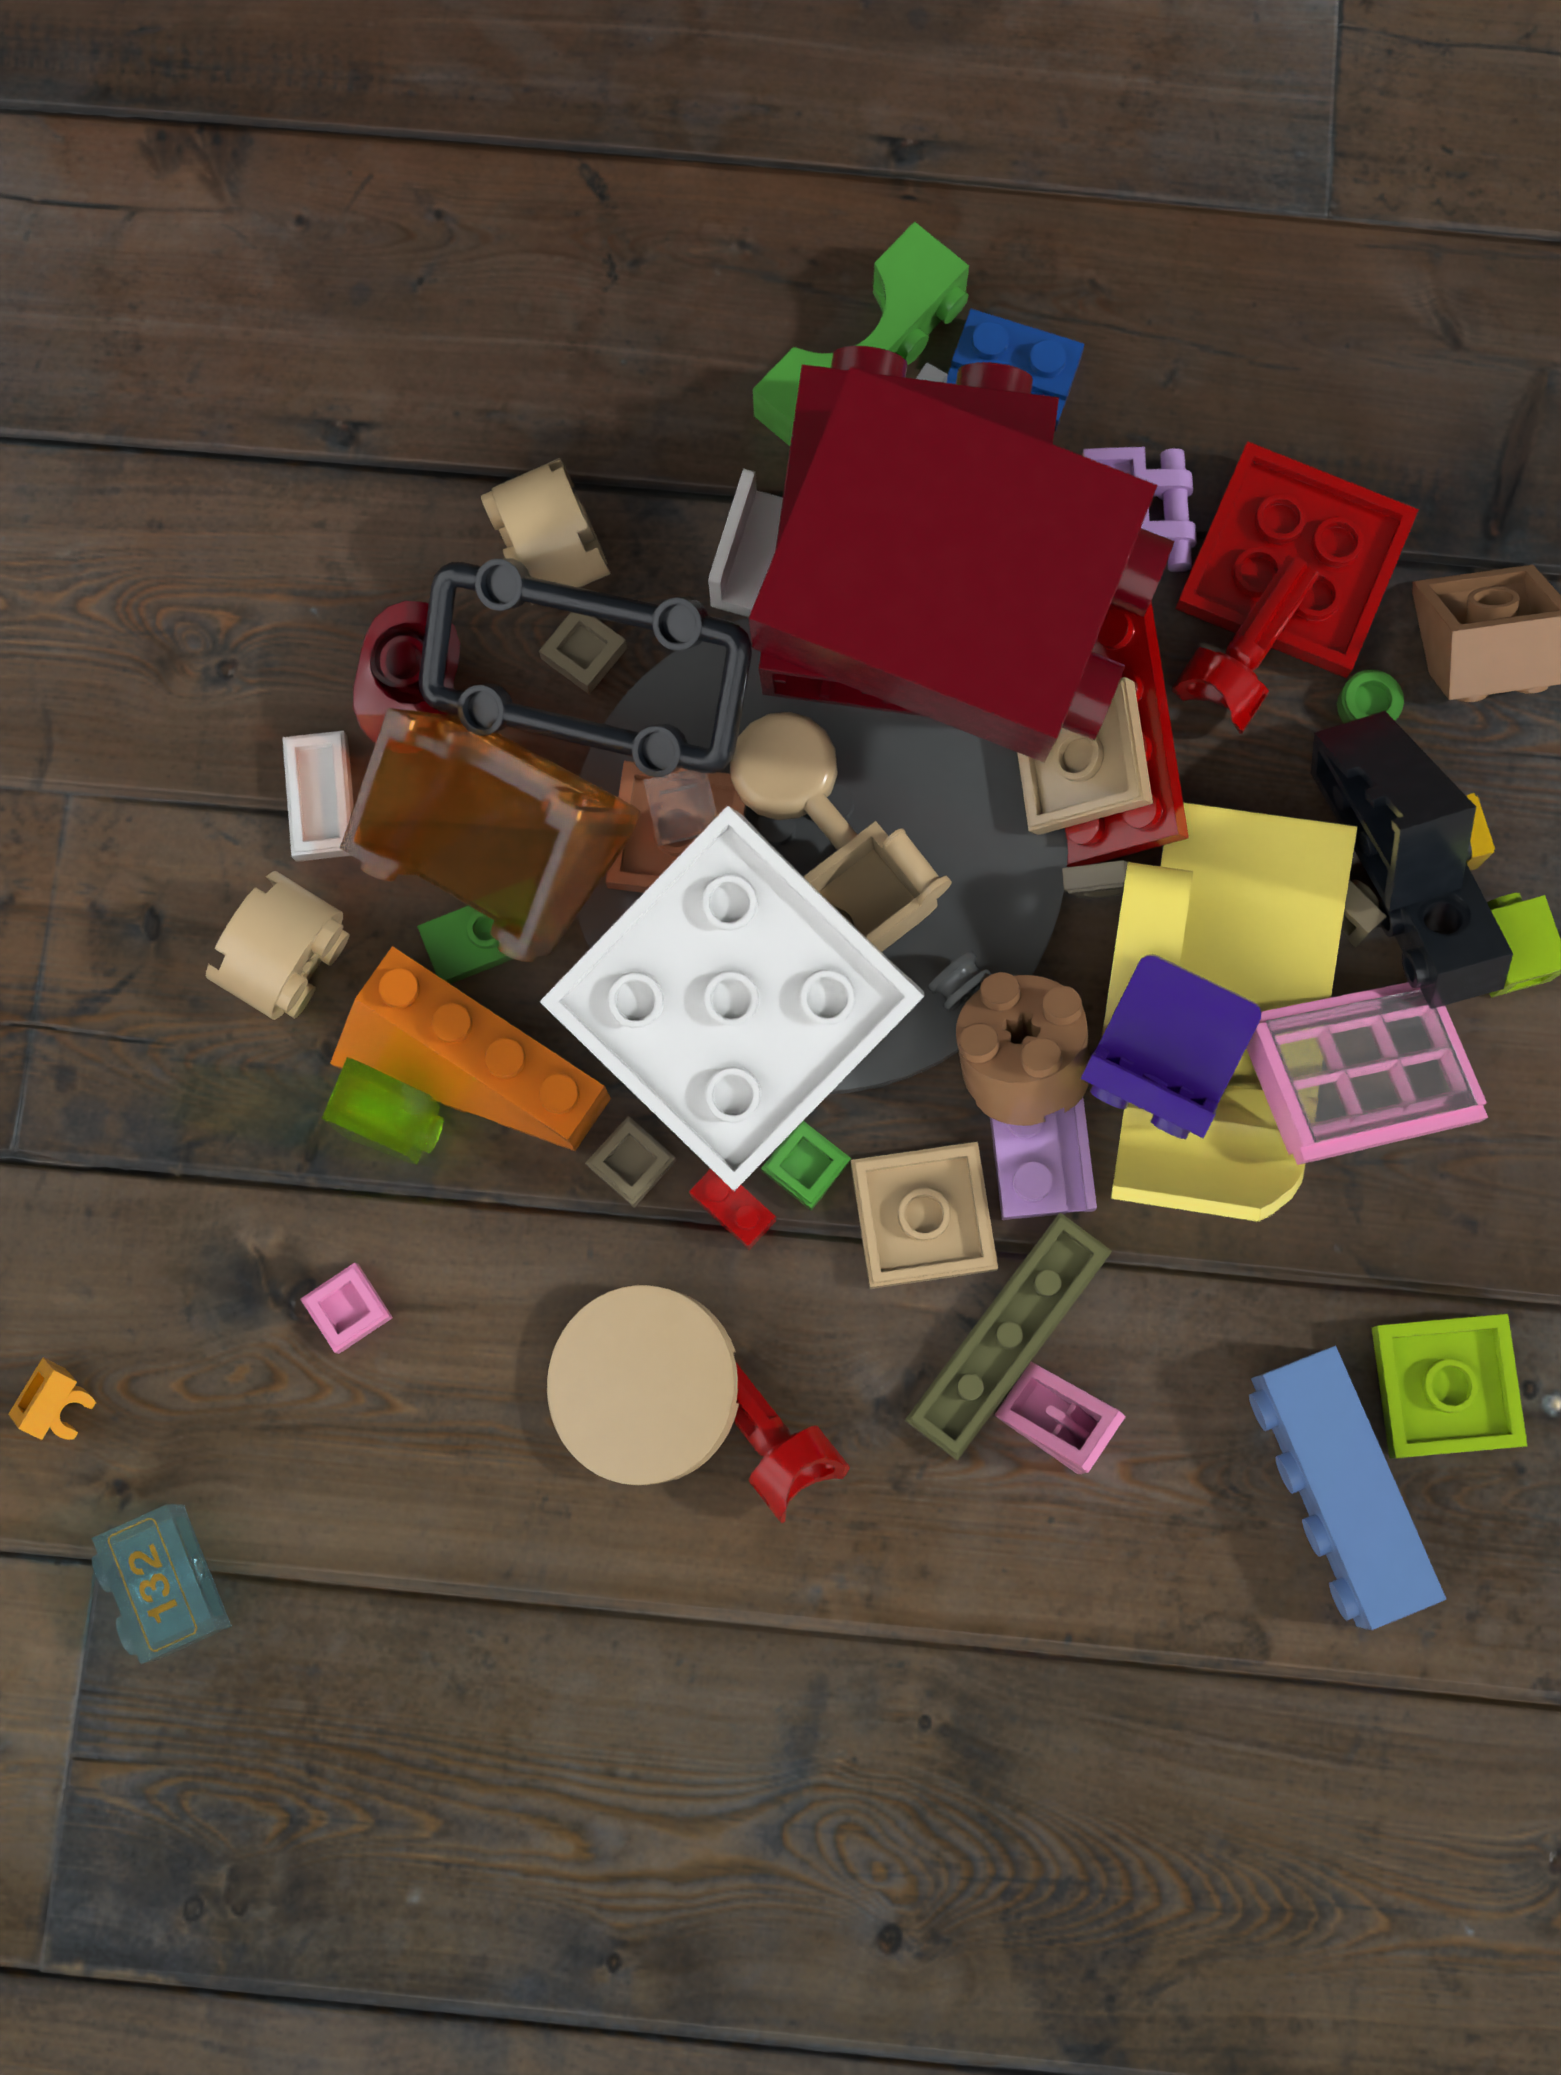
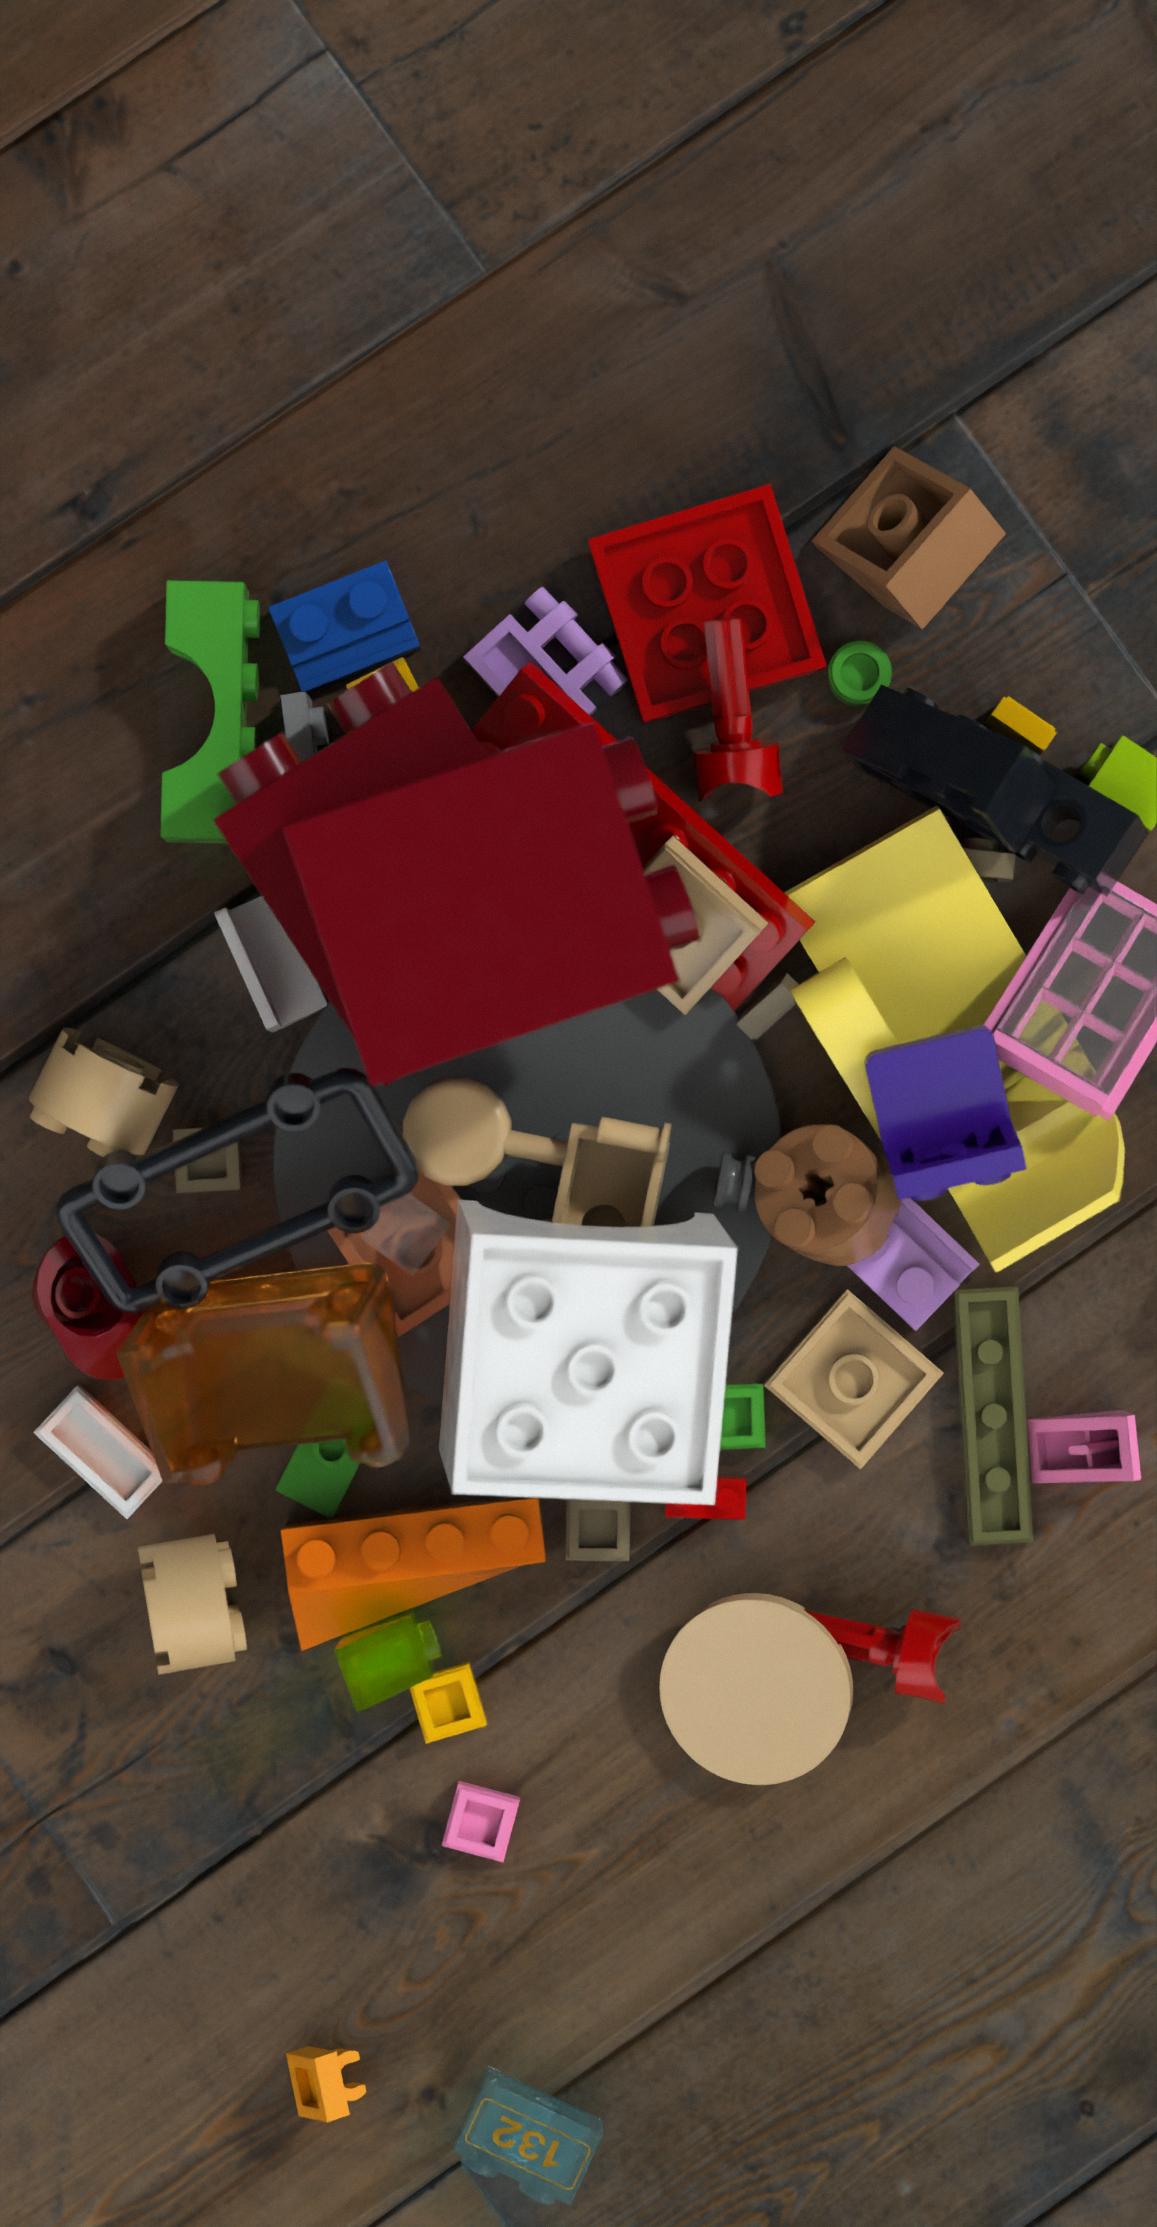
camera: 40 degrees left, 10 degrees up
(402, 1195) = (448, 1703): none -> yellow tile

